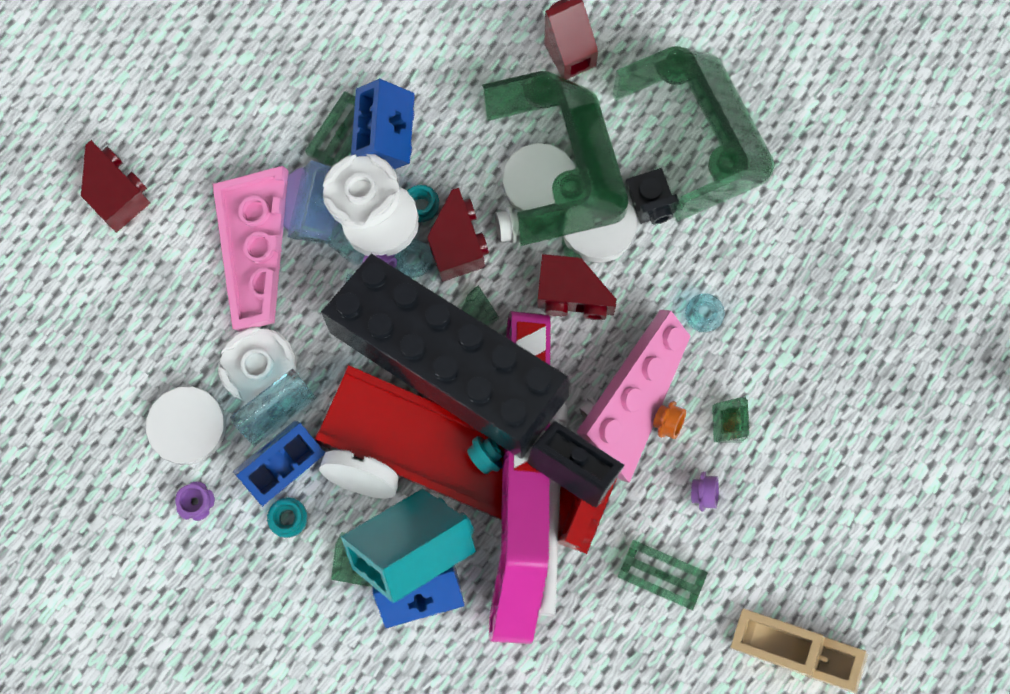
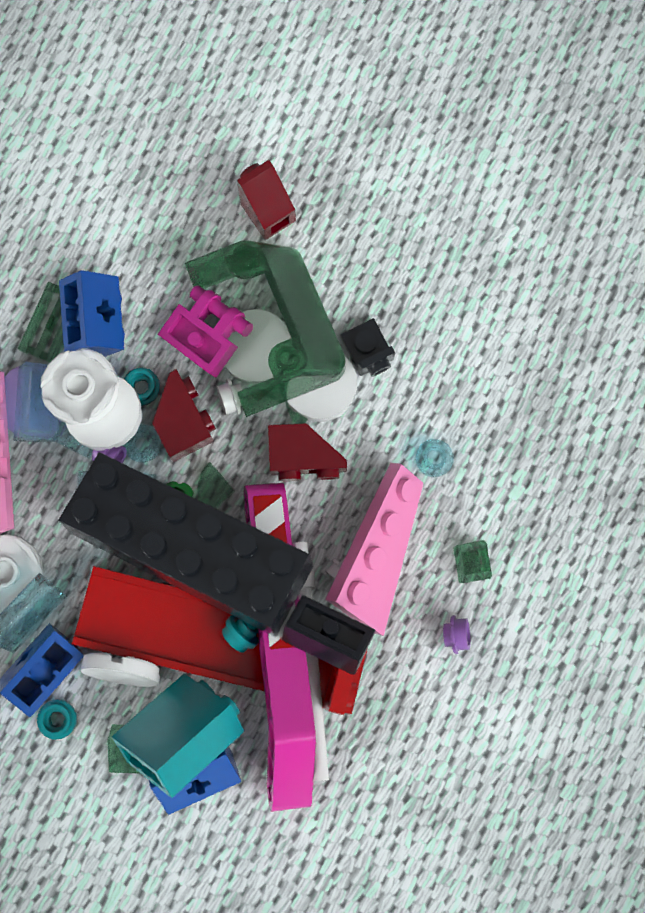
camera: 15 degrees left, 5 degrees up
(485, 165) = (199, 341): none -> dark pink plate
(669, 420) = (414, 569): orange plate -> none
(669, 560) = (394, 711): clear green tile -> none
(742, 157) = (454, 295): clear green windscreen -> none
(799, 650) = (564, 774): tan slope -> none

